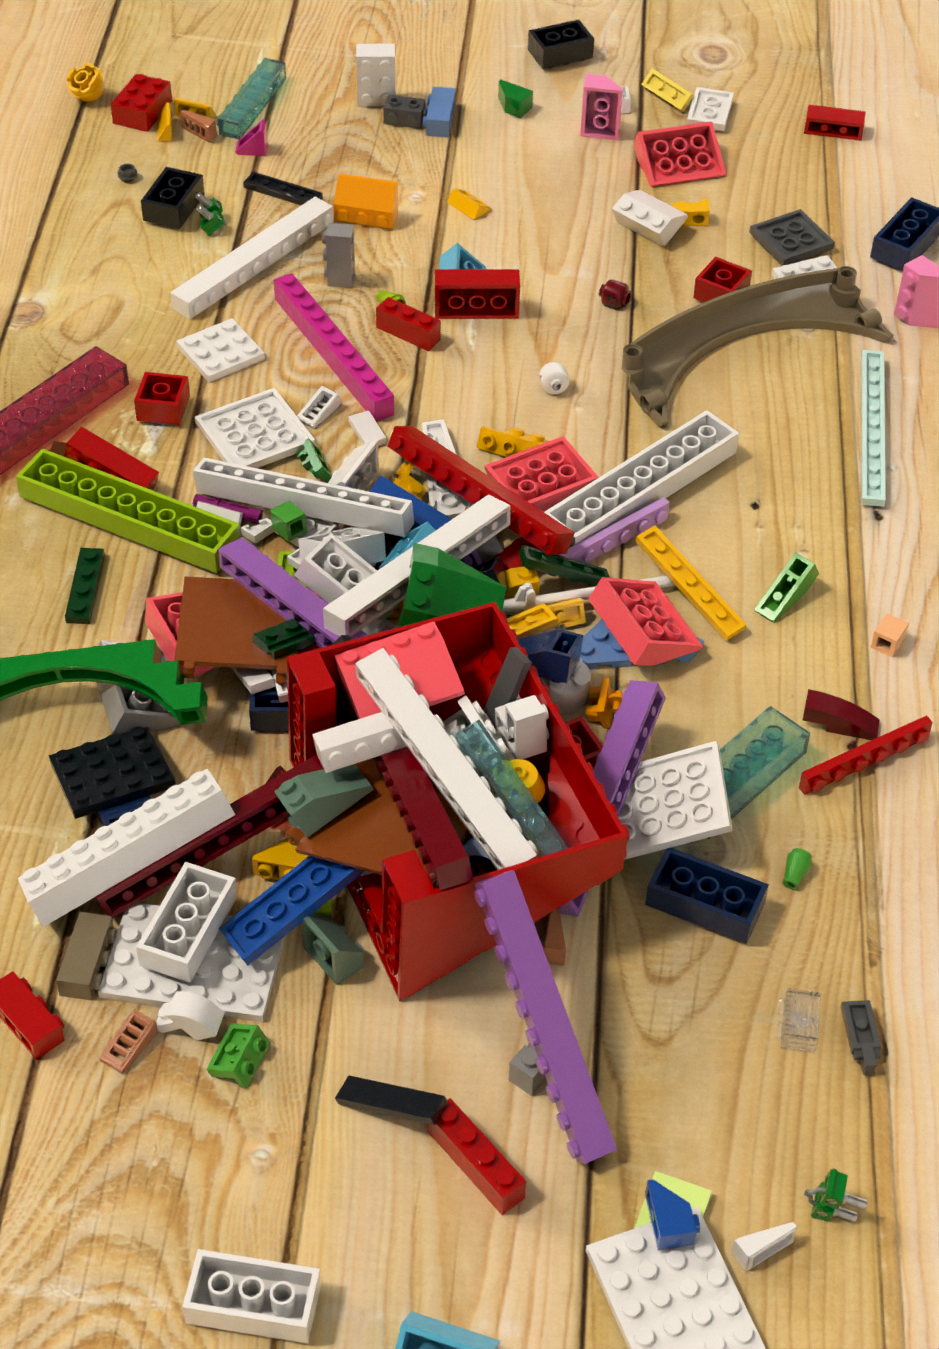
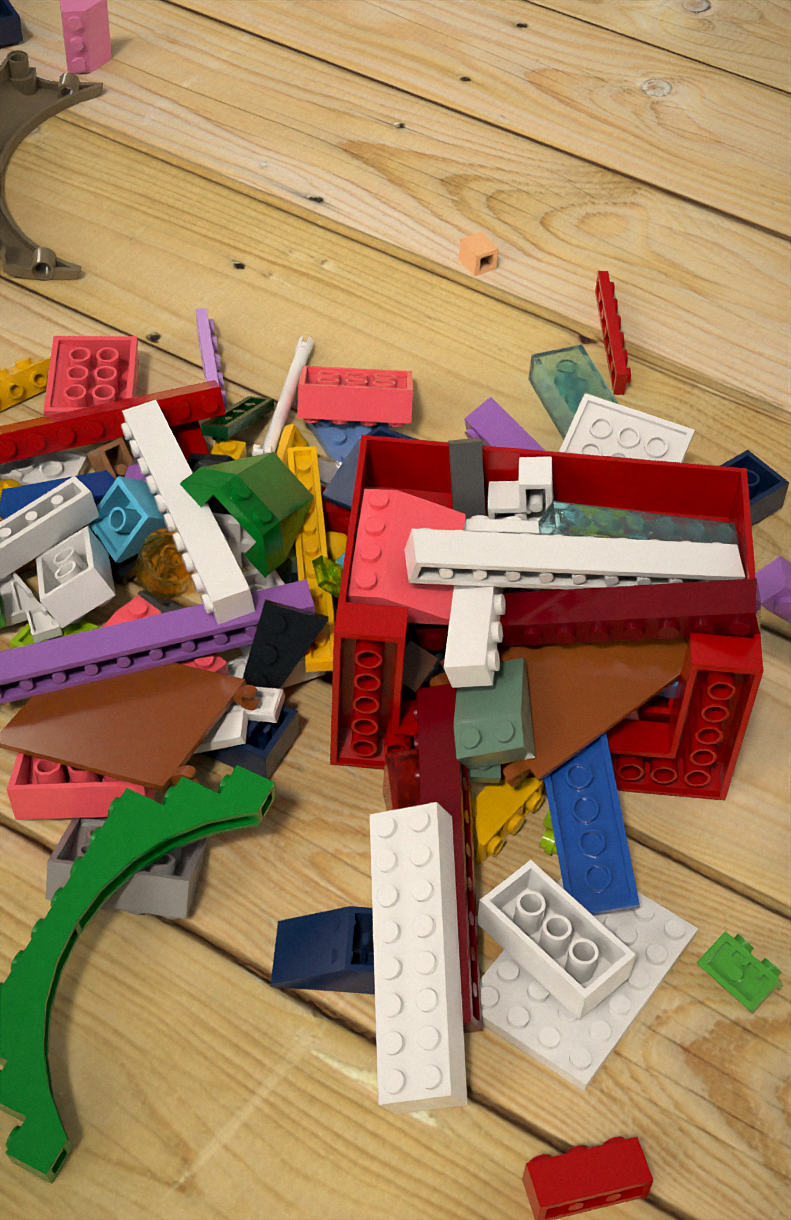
camera: 65 degrees left, 0 degrees up
(86, 956) = (527, 1076): dark tan brick -> none
(111, 771) = (253, 942): black plate -> none
(138, 1025) = (675, 1059): nougat slope -> none
(192, 1014) = (671, 998): white brick -> none
(283, 639) = (189, 676): dark green plate -> none
(331, 947) = (652, 823): sand green slope -> none
(334, 570) = (139, 583): white slope -> none
(647, 476) = (155, 306): white brick -> none
(691, 583) = (323, 342): yellow plate -> none
(788, 587) = (373, 286): bright green slope -> none
(797, 866) = (715, 433): bright green cone -> none
(840, 716) = (552, 328): dark red slope -> none
(872, 428) = (210, 148): light aqua plate -> none

